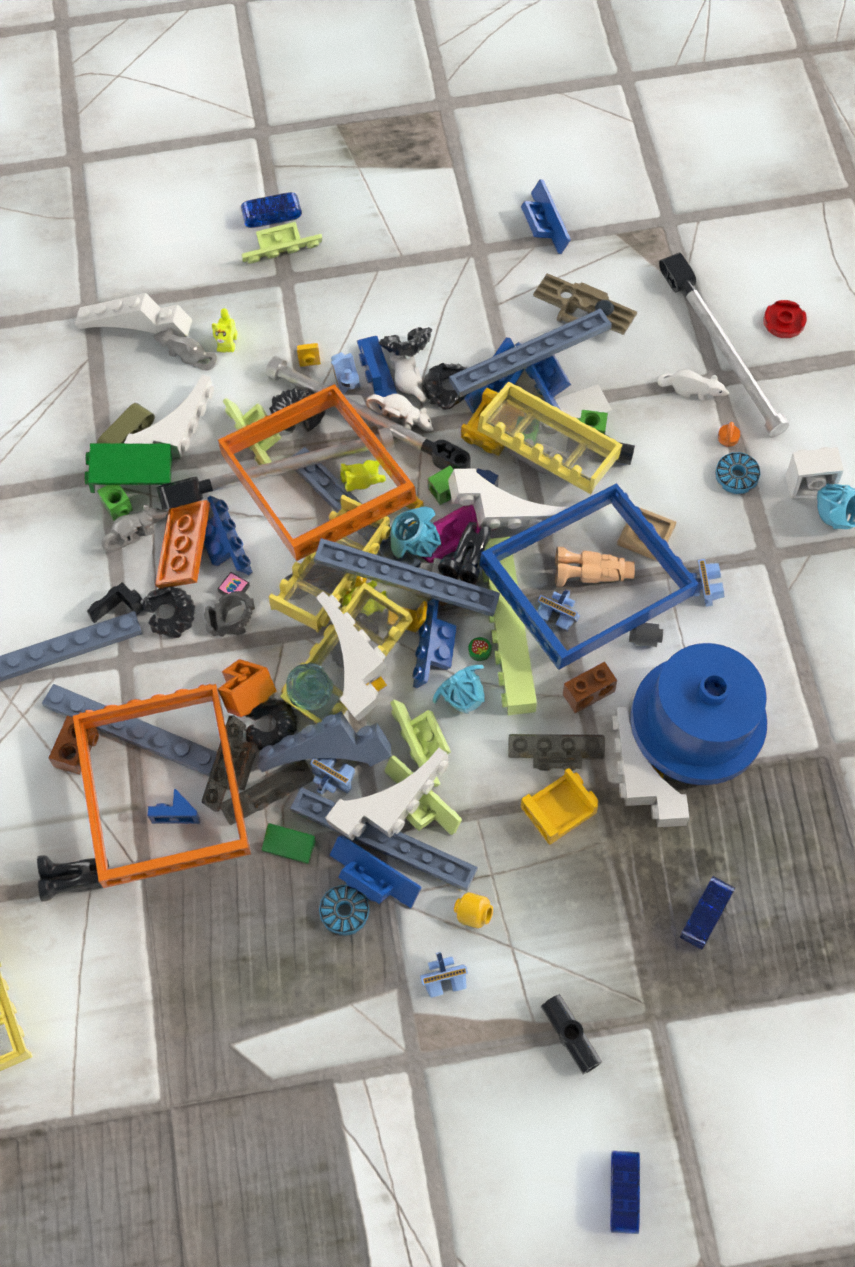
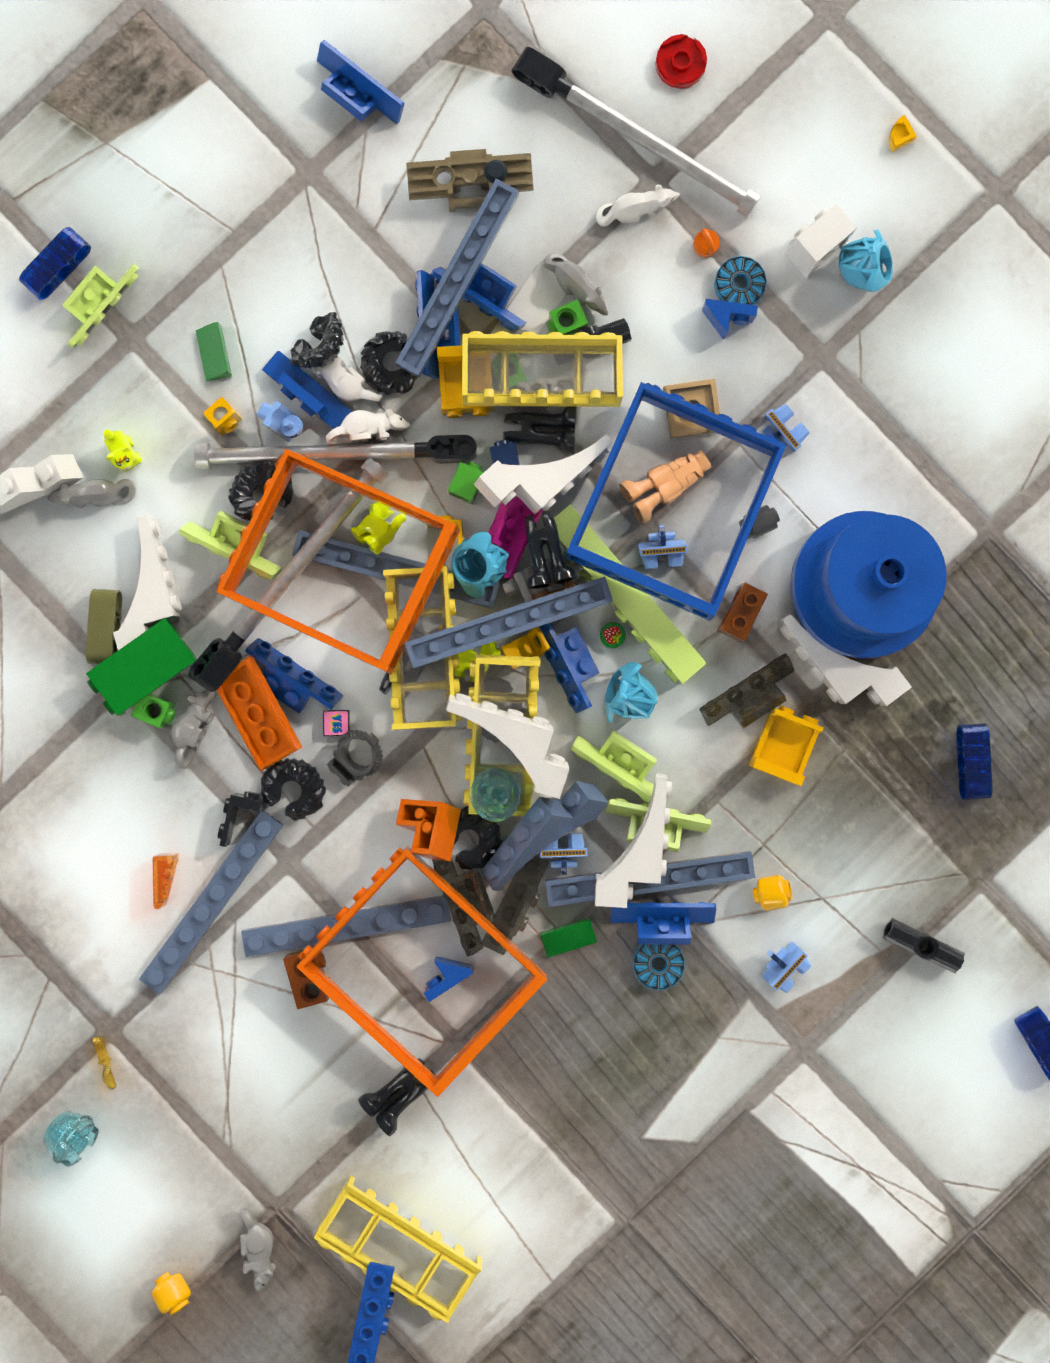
camera: 40 degrees left, 25 degrees up
(31, 611) = (163, 874): none -> clear orange slope
(333, 314) = (213, 352): none -> green slope
(514, 472) = (530, 421): none -> black piece
(614, 405) = (573, 281): none -> light grey animal
(712, 482) = (721, 312): none -> blue slope

